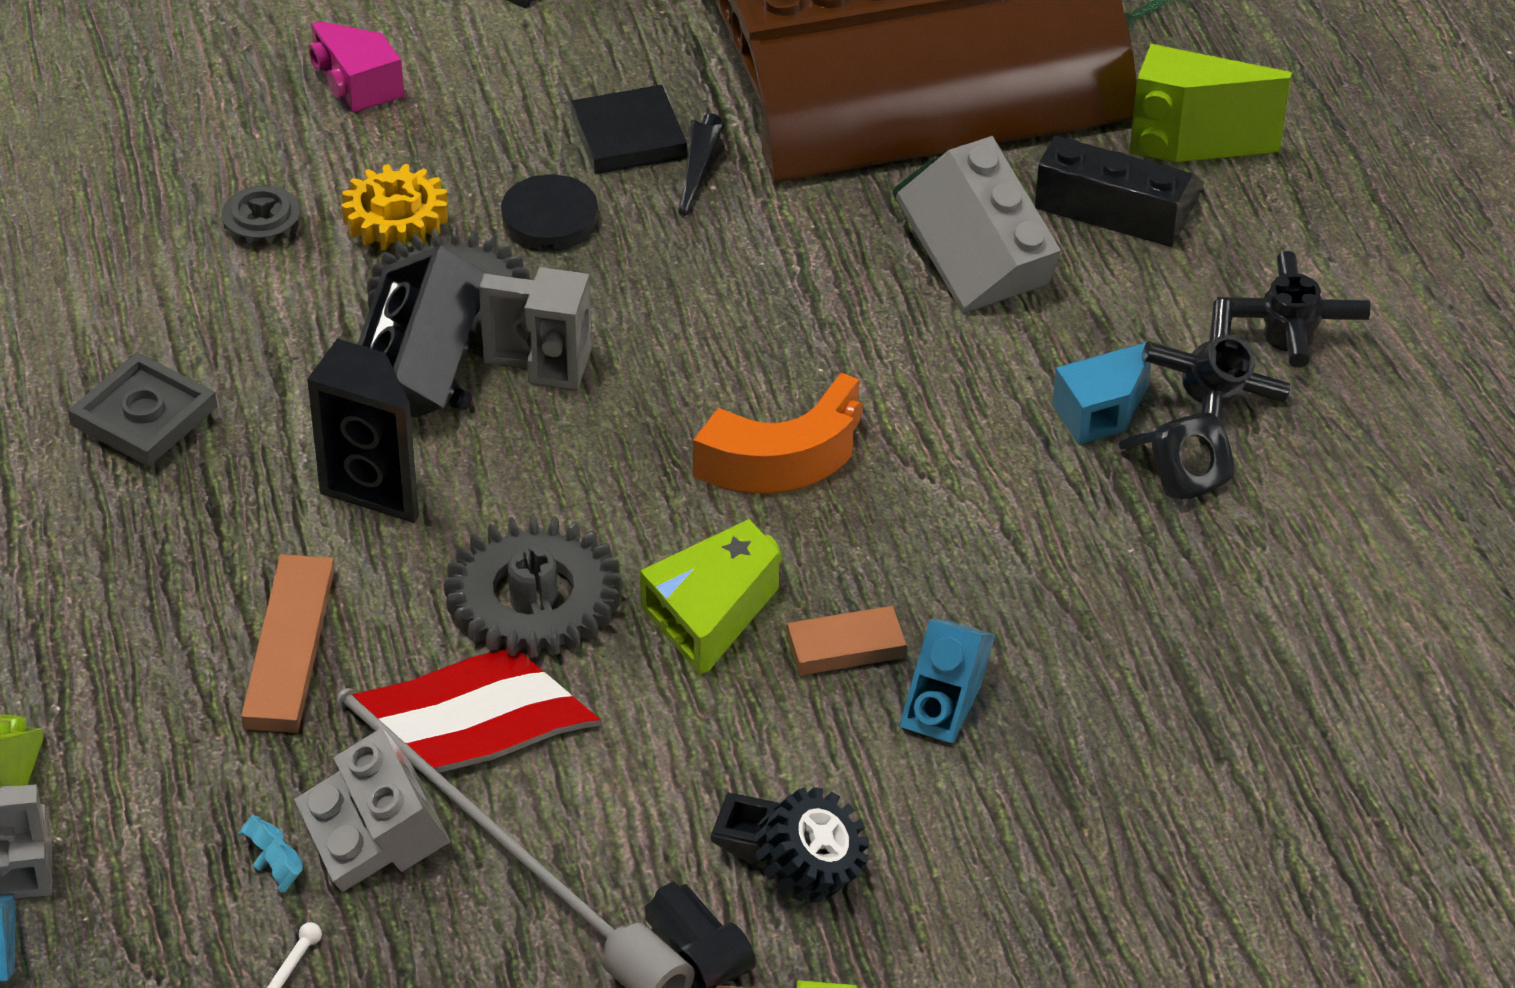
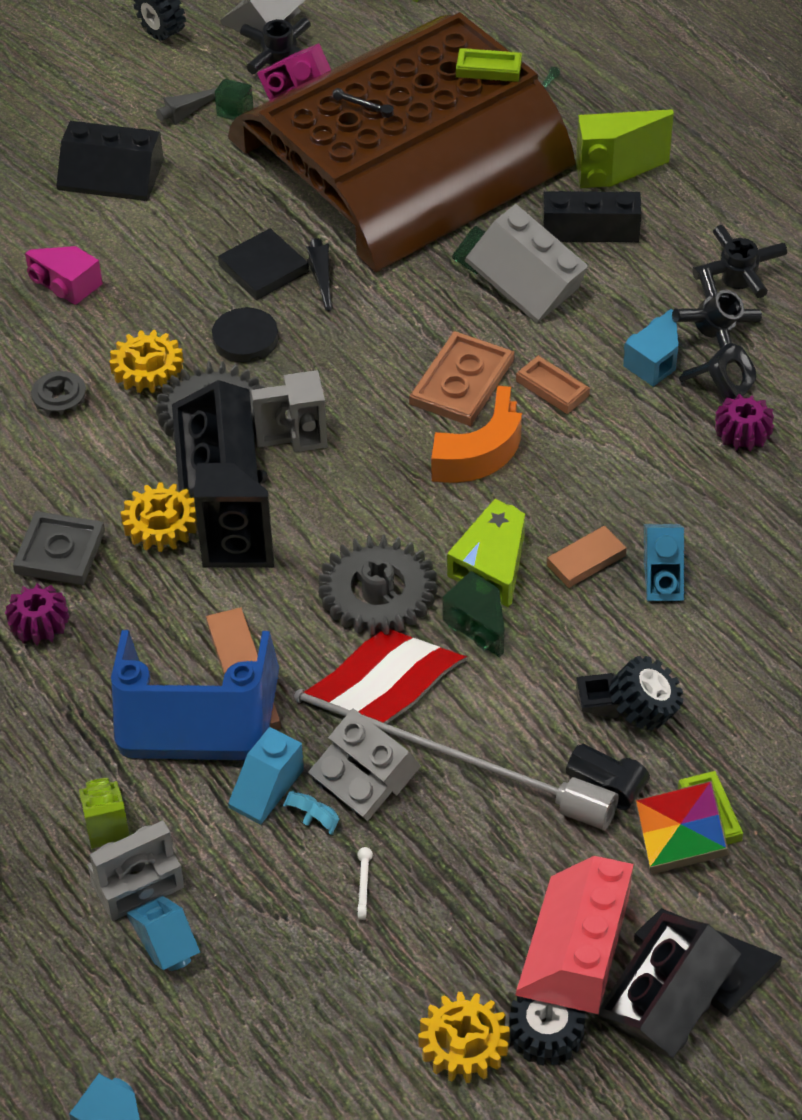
camera: 20 degrees left, 5 degrees up
(63, 482) = (37, 614): none -> magenta gear
(183, 682) = (192, 718): none -> blue windscreen
(235, 779) = (267, 775): none -> dark azure slope
(278, 410) = (159, 517): none -> yellow gear
(645, 663) = (476, 611): none -> clear green slope
(807, 350) = (462, 378): none -> nougat tile
(934, 399) = (552, 384): none -> nougat tile
(1174, 528) = (744, 422): none -> magenta gear

